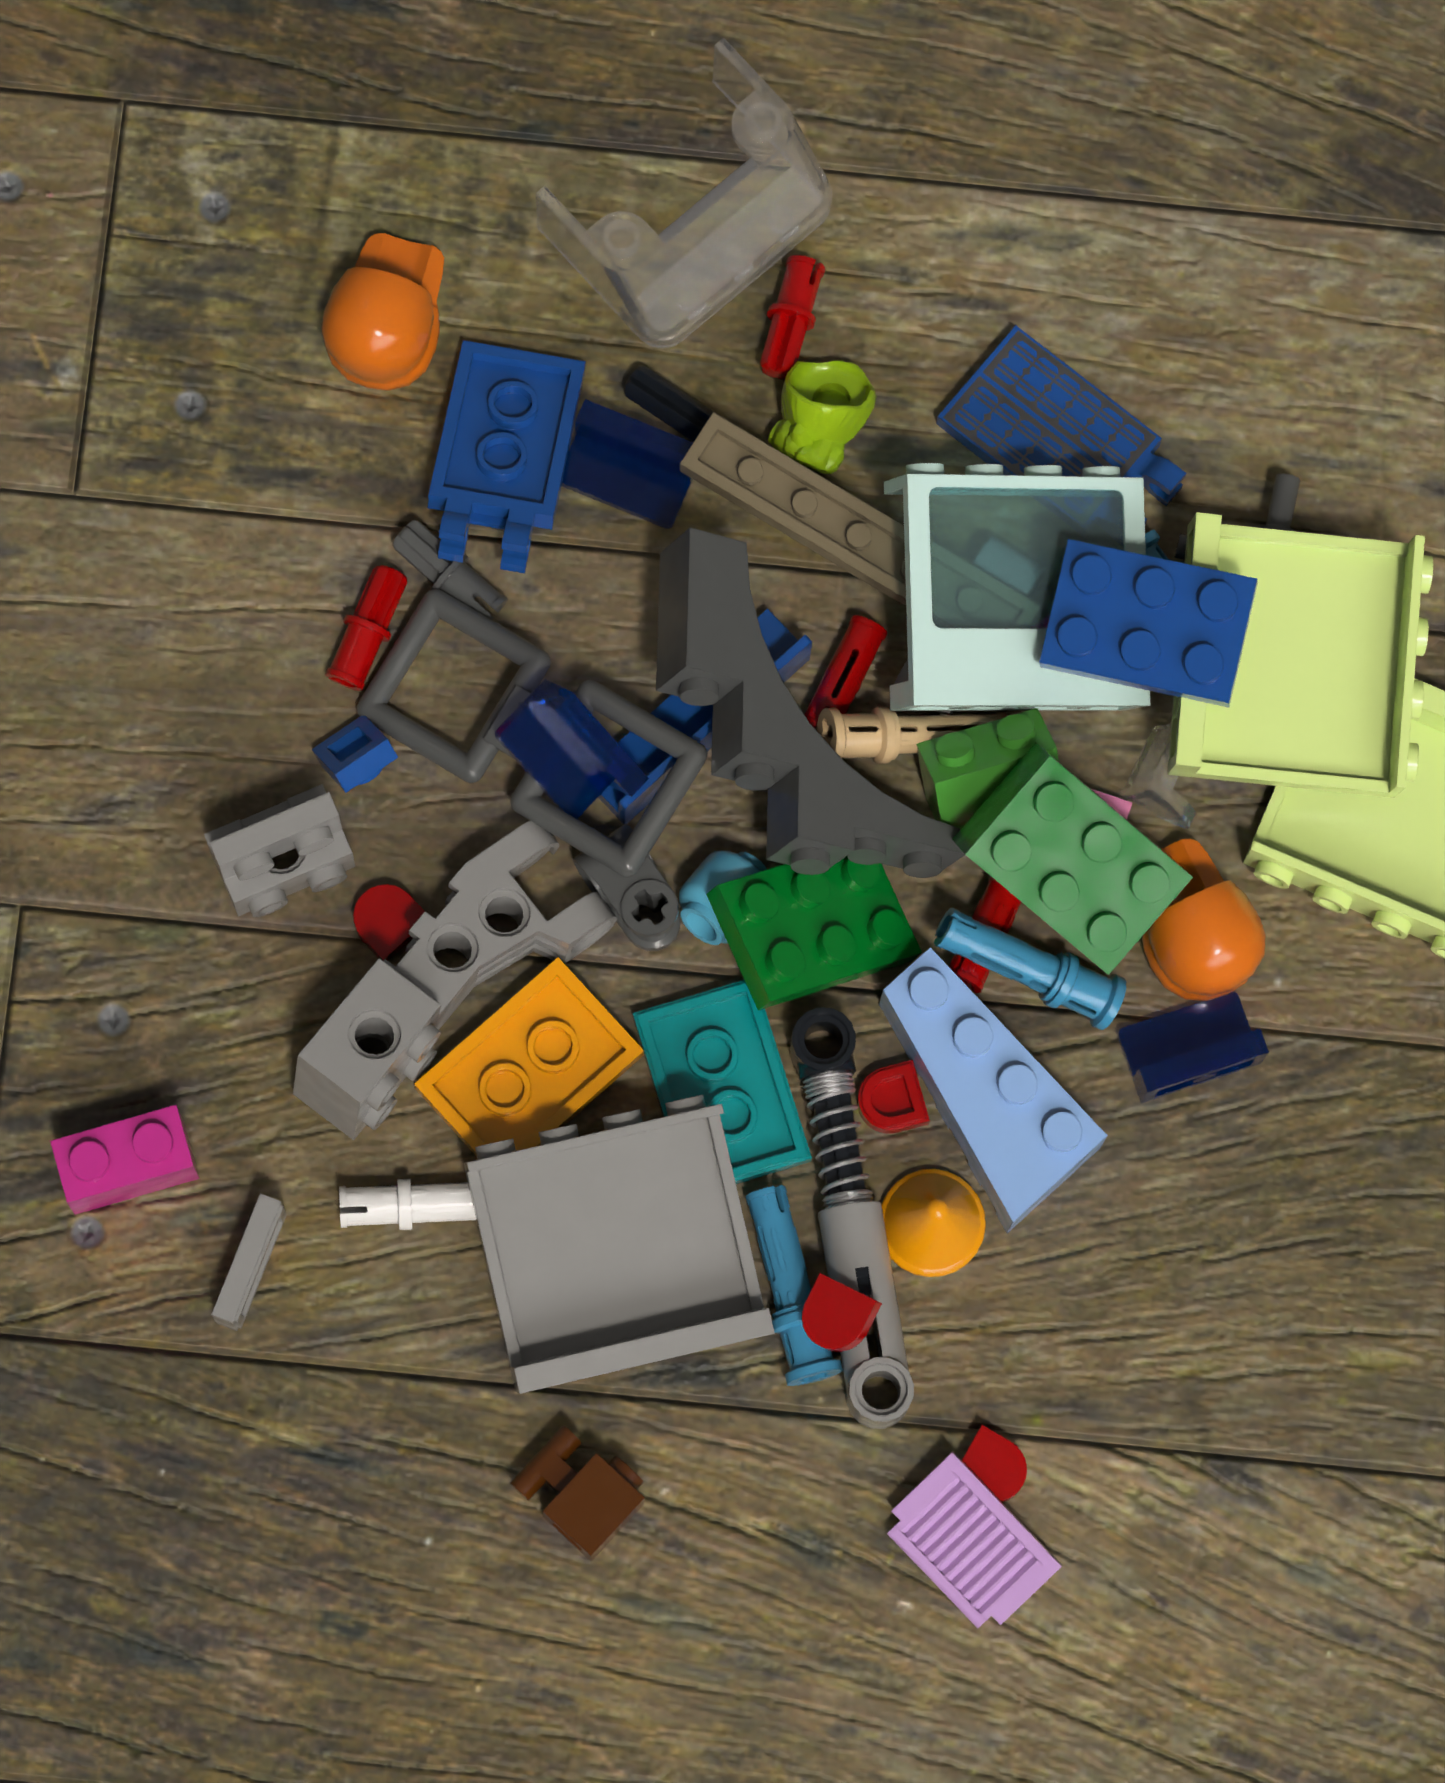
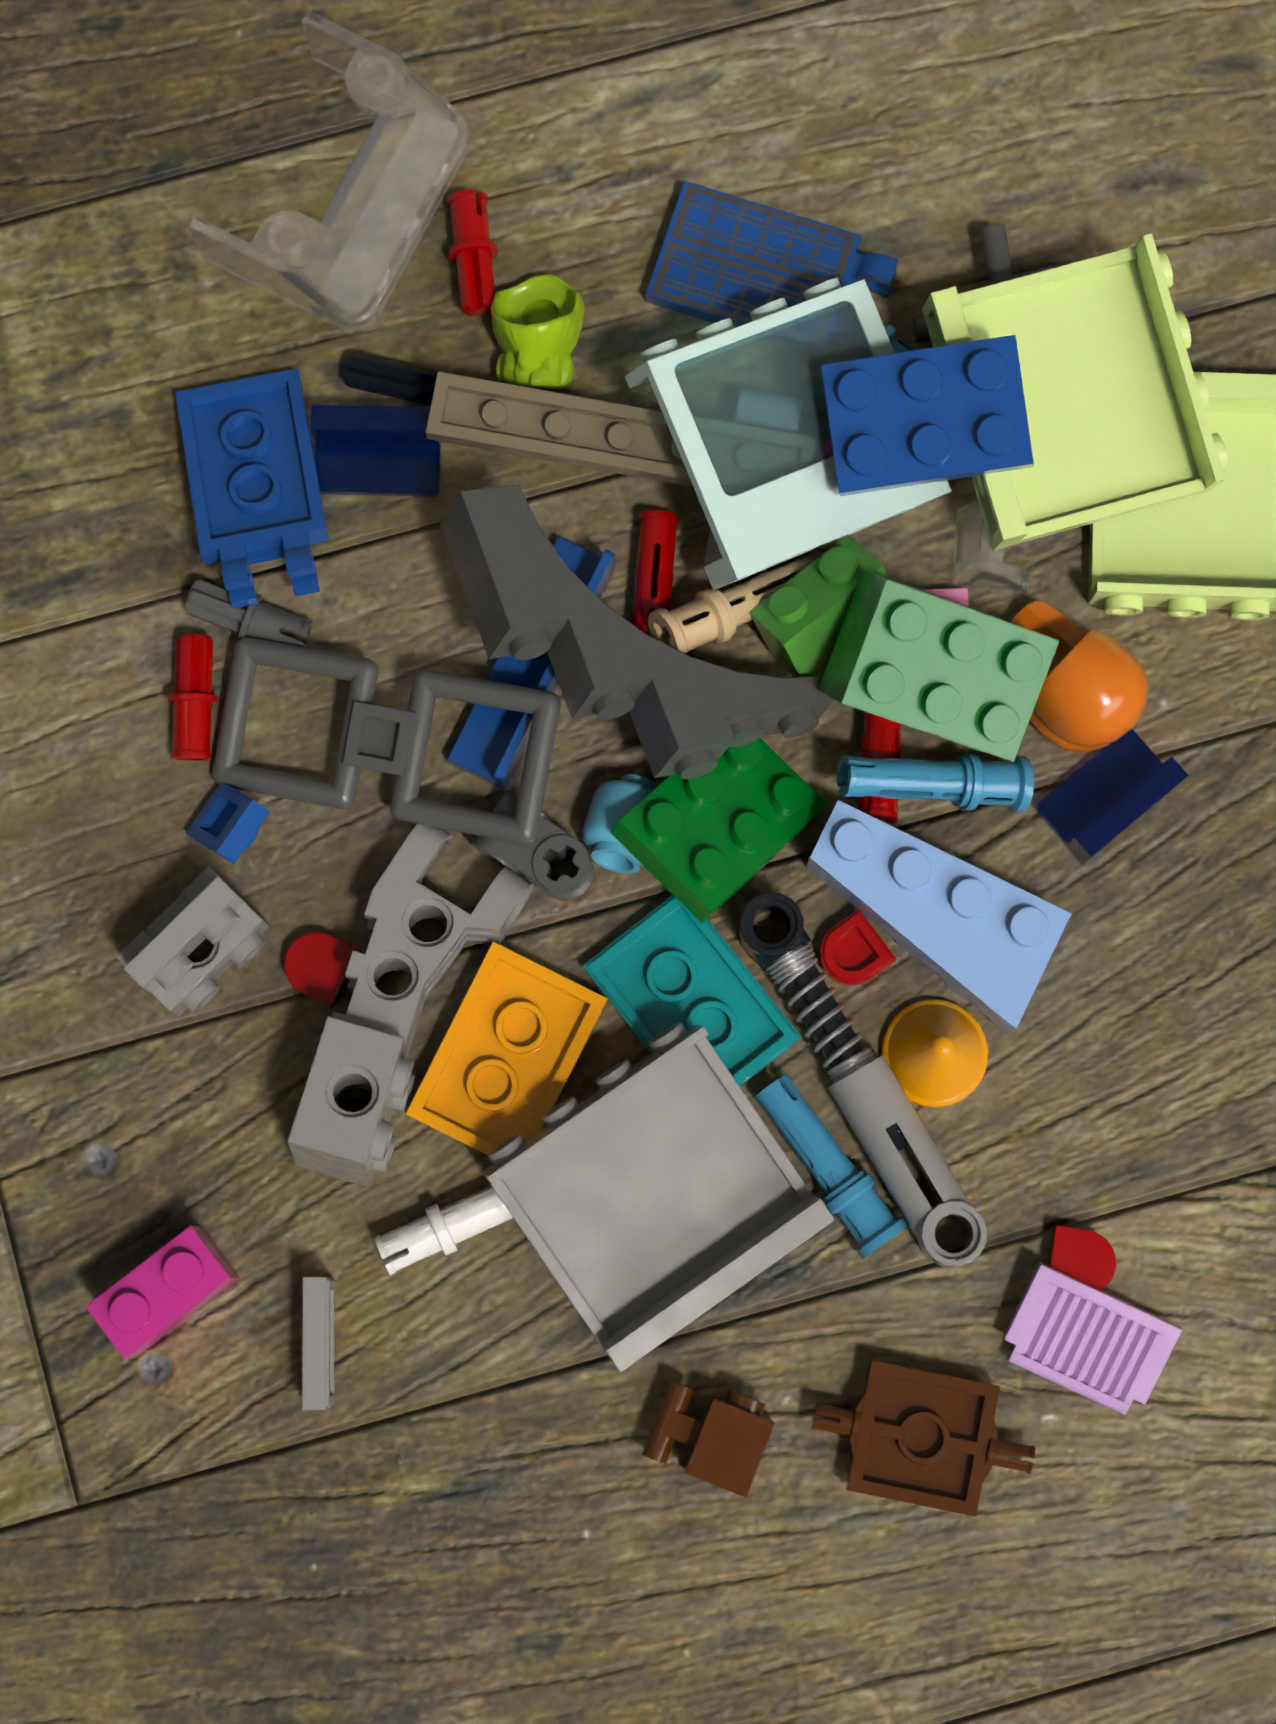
camera: 15 degrees left, 5 degrees up
(385, 313) = (91, 394): orange piece -> none
(567, 749) = (425, 745): clear blue panel -> none
(778, 1571) = (923, 1438): none -> reddish brown plate
(837, 1315) = (887, 1180): red tile -> none

